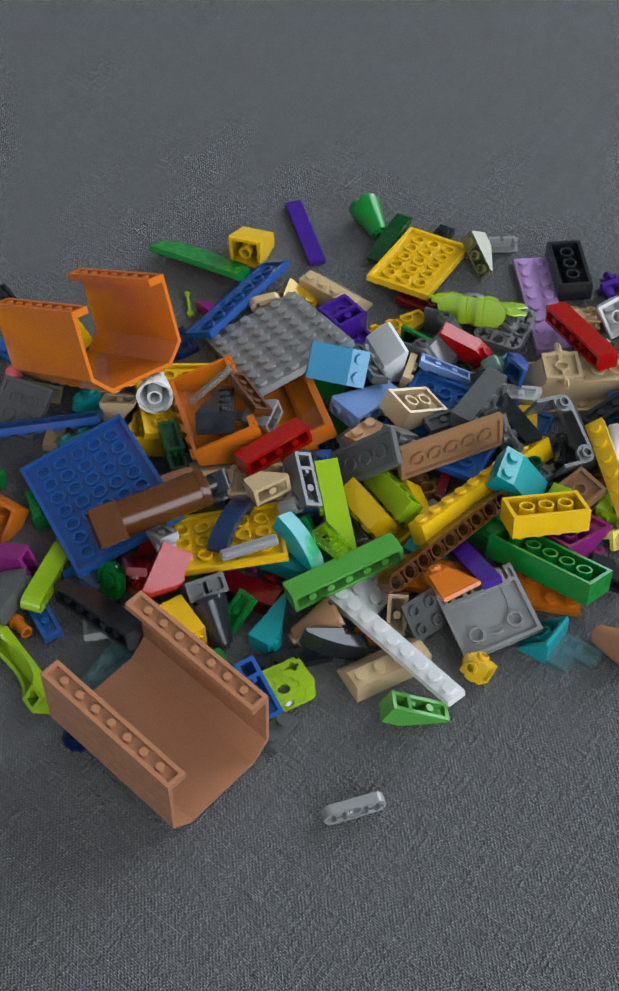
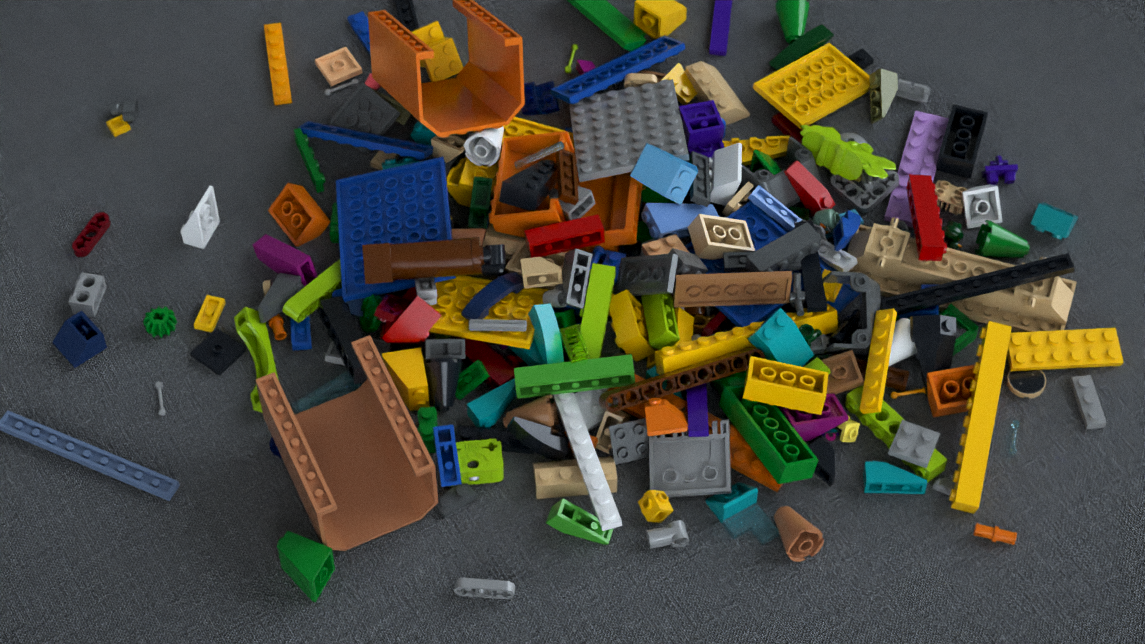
camera: 20 degrees right, 5 degrees up
(159, 849) = (306, 563): none -> green slope
(507, 689) = (674, 534): none -> light grey piece

